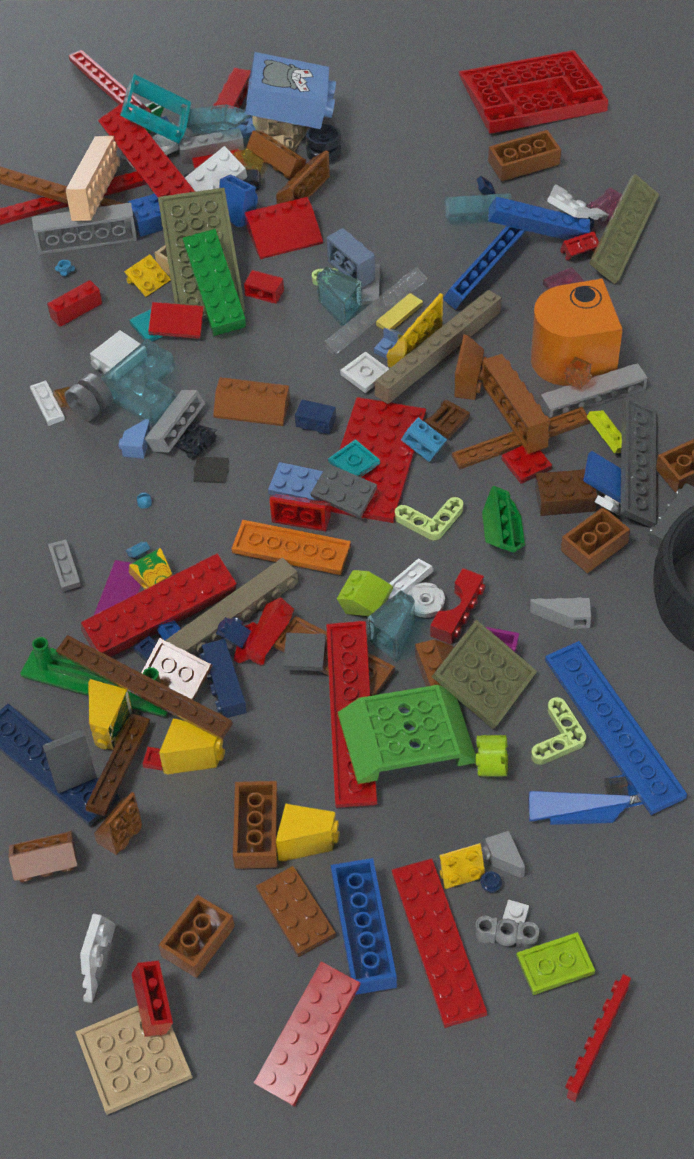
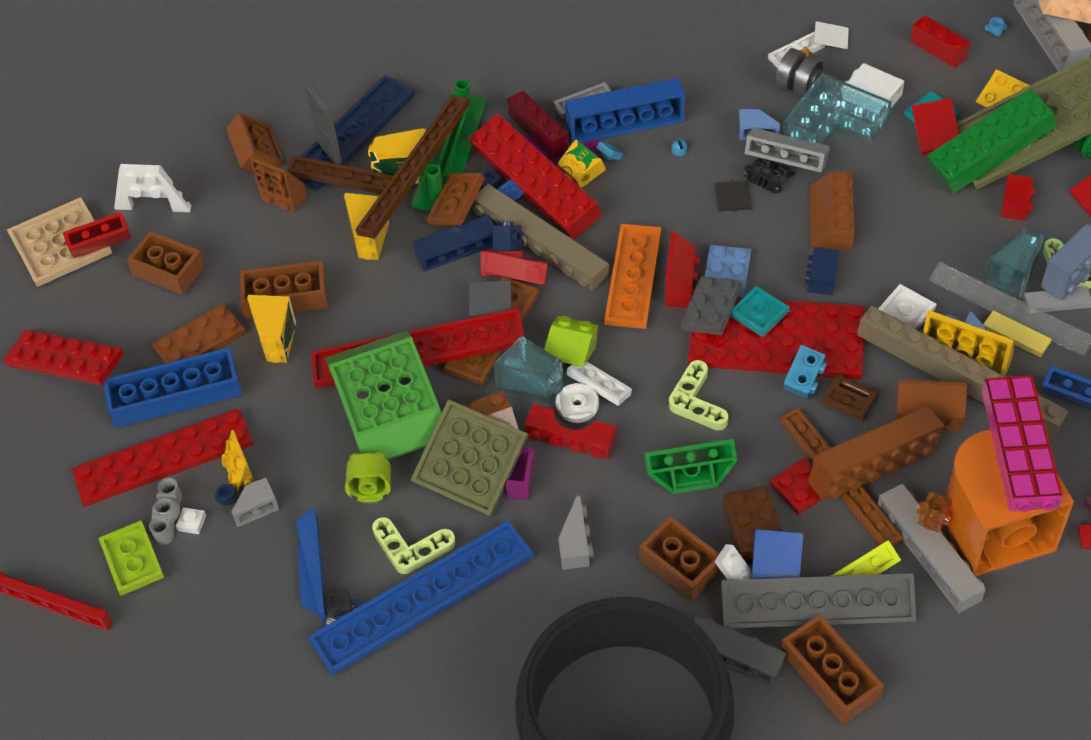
camera: 85 degrees right, 0 degrees up
(37, 375) = (831, 35): none -> white sticker
(88, 601) = (538, 124): none -> dark red brick
(97, 529) = (625, 111): none -> blue brick
(555, 292) = (1021, 444): none -> dark pink brick

